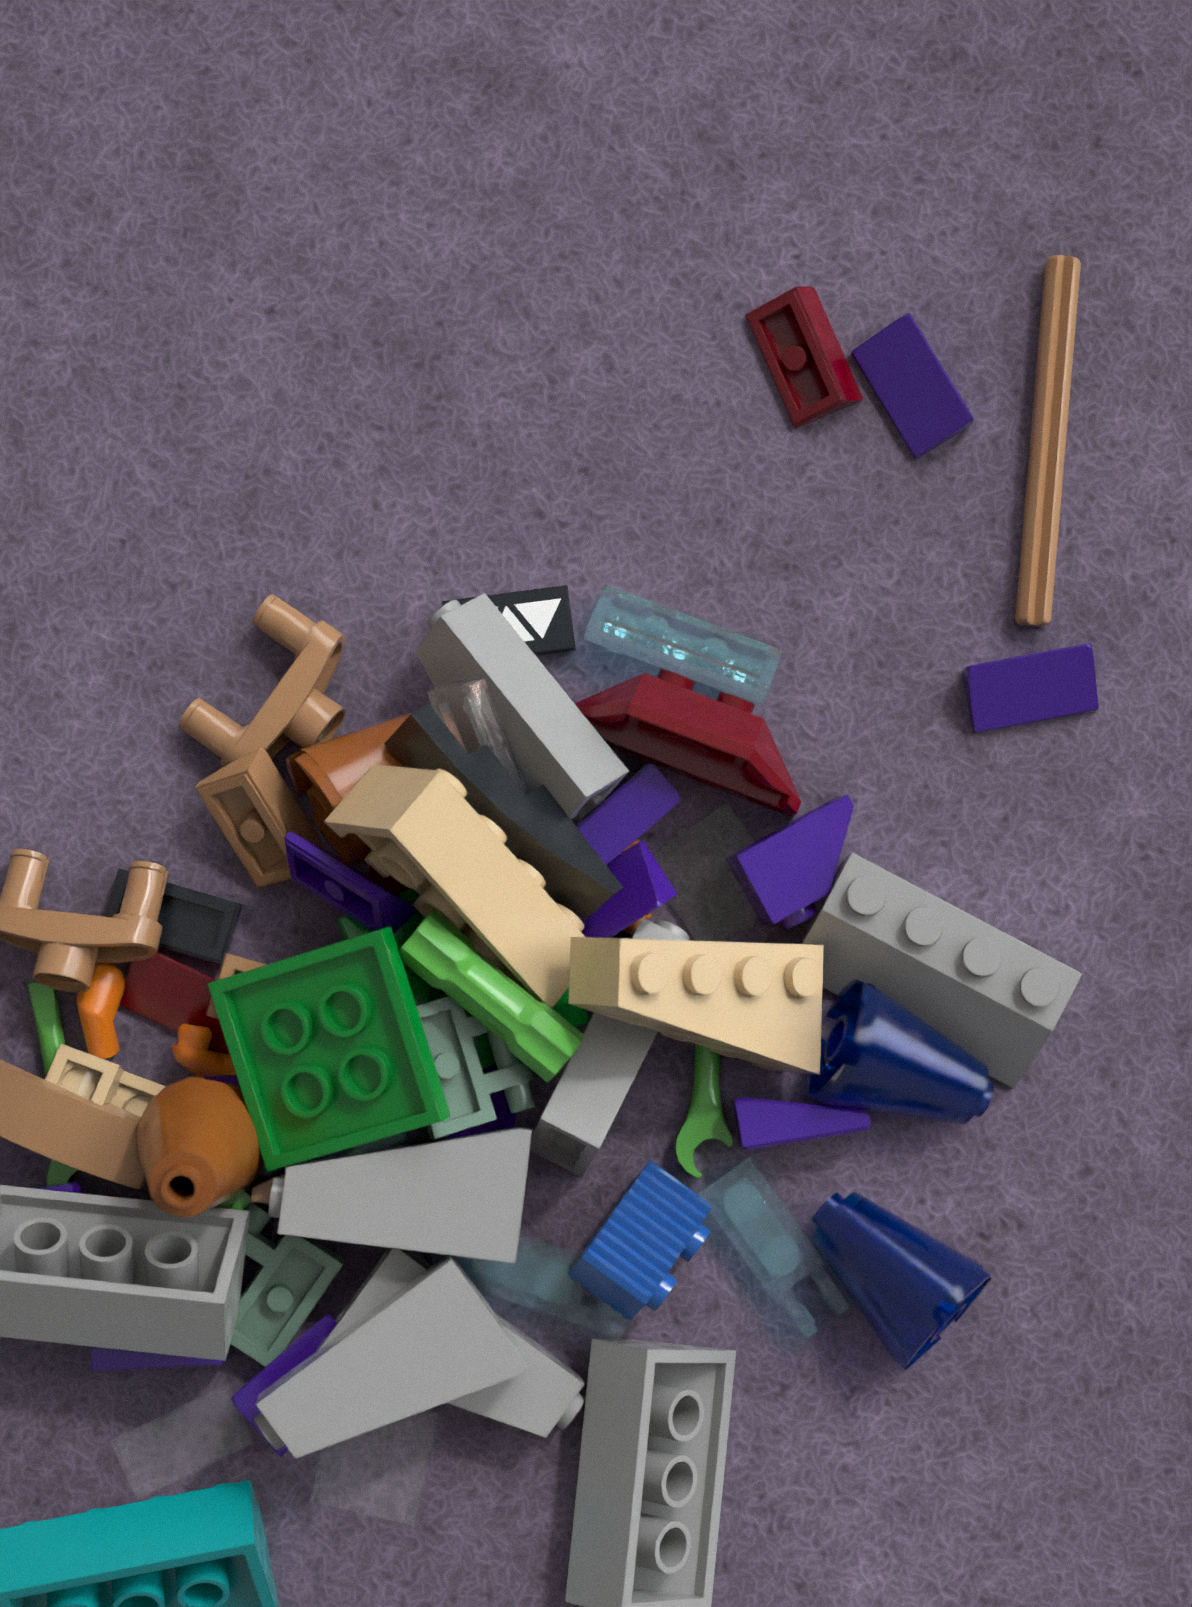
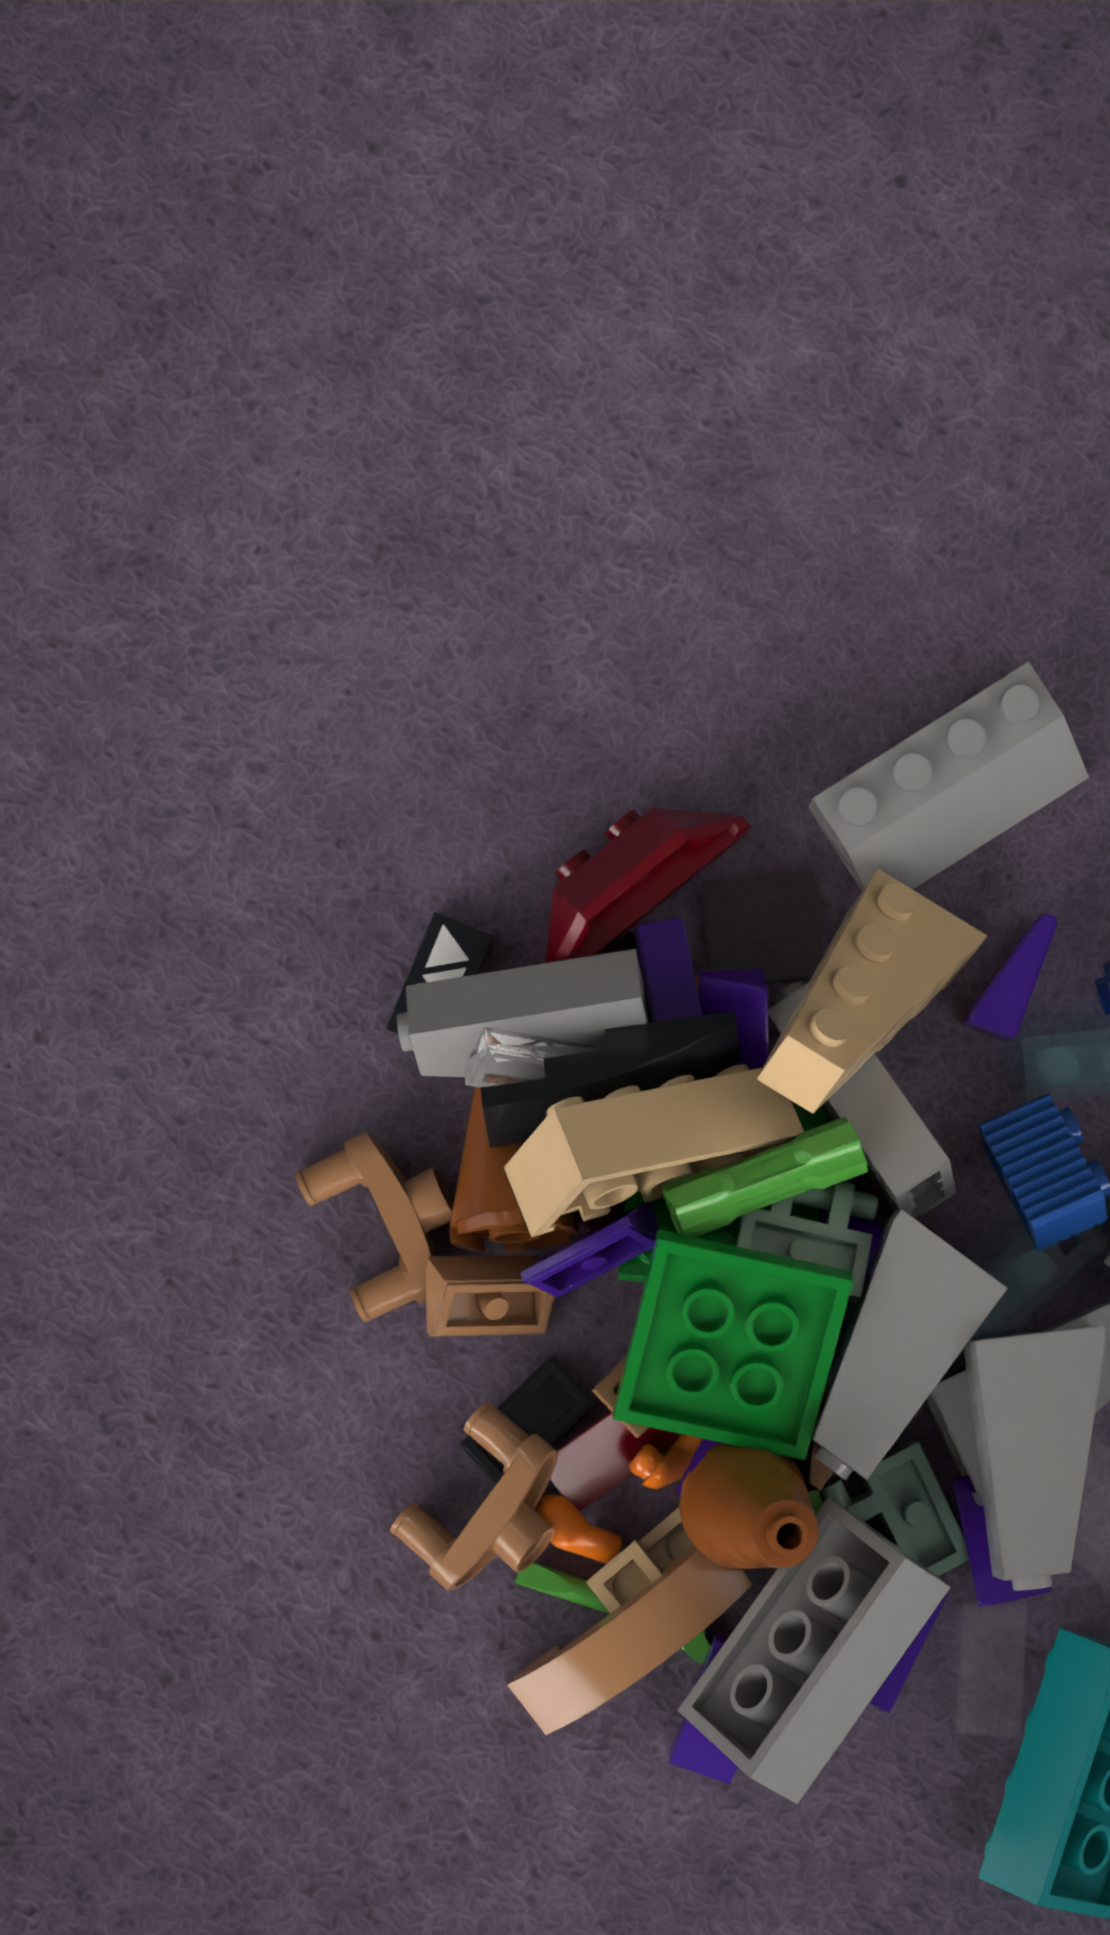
camera: 60 degrees left, 0 degrees up
(683, 644) = (545, 840): clear light blue plate -> none
(705, 1111) = (962, 1055): bright green piece -> none
(793, 864) = (790, 853): dark purple slope -> none
(803, 355) = (349, 592): dark red slope -> none
(895, 1062) = (1012, 865): clear blue cone -> none
(912, 386) = (431, 513): dark purple slope -> none
(1031, 688) = (753, 563): dark purple slope -> none
(1048, 441) = (546, 425): medium nougat axle -> none

